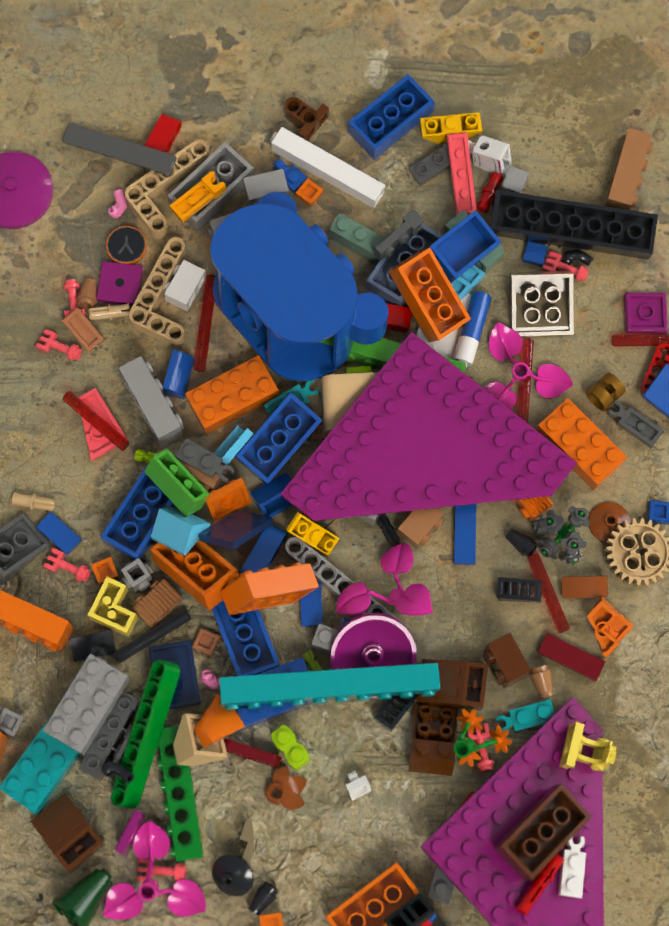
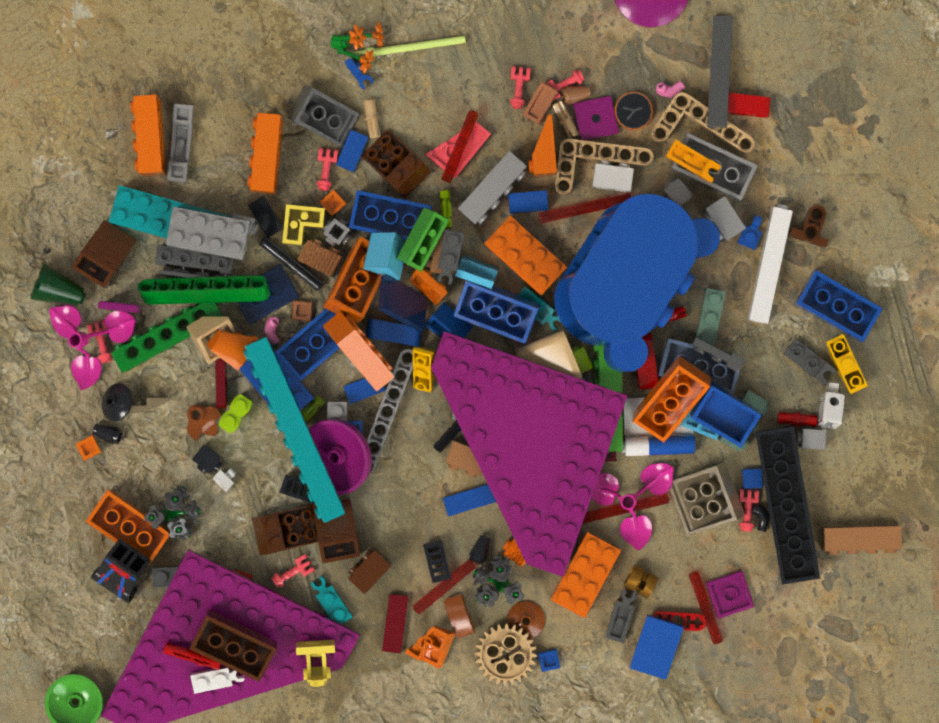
camera: 75 degrees right, 15 degrees up
(89, 492) = (396, 163): none -> reddish brown slope
(118, 770) = (166, 279): black arm -> none
(132, 337) = (544, 157): none -> orange slope
(309, 192) = (740, 257): orange plate -> none
(330, 796) = (207, 459): none -> black brick
(390, 852) = (173, 503): none -> dark grey plant
(412, 601) = (388, 474): dark pink plant -> none
(461, 173) = (804, 388): coral tile -> none
(465, 746) = (282, 561): orange plant -> none
(542, 679) = (366, 605): medium nougat cone -> none

